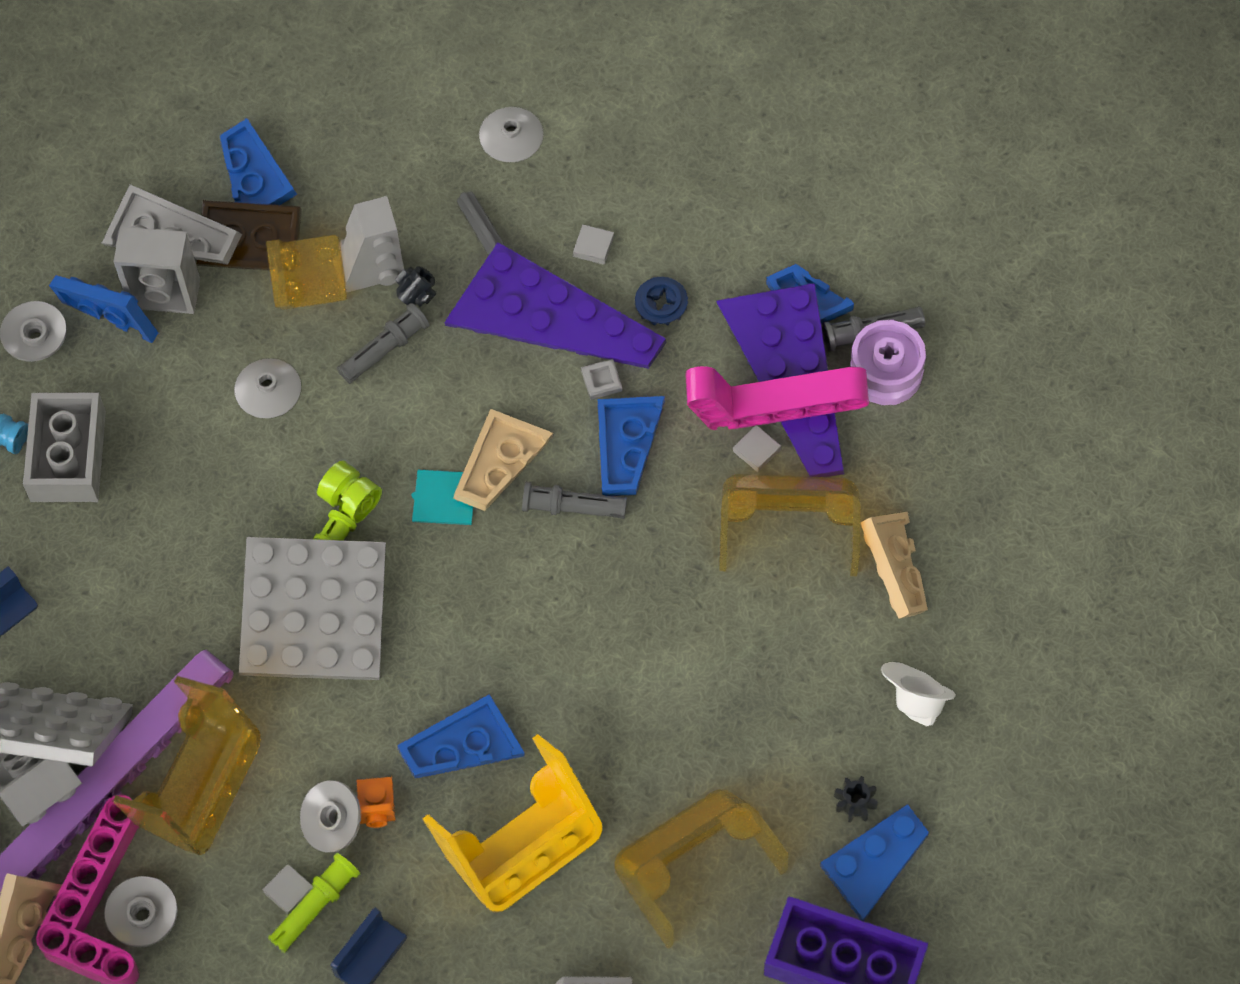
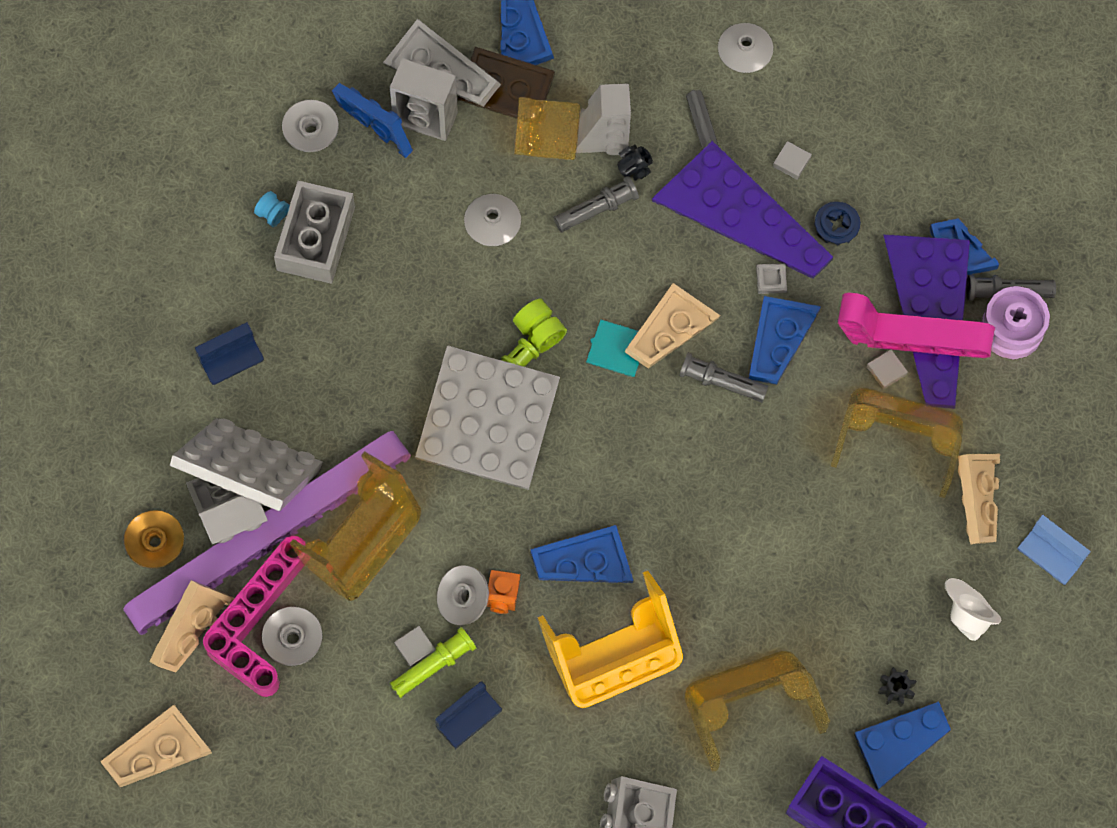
camera: 10 degrees right, 5 degrees up
(995, 603) = (1054, 550): none -> medium blue panel

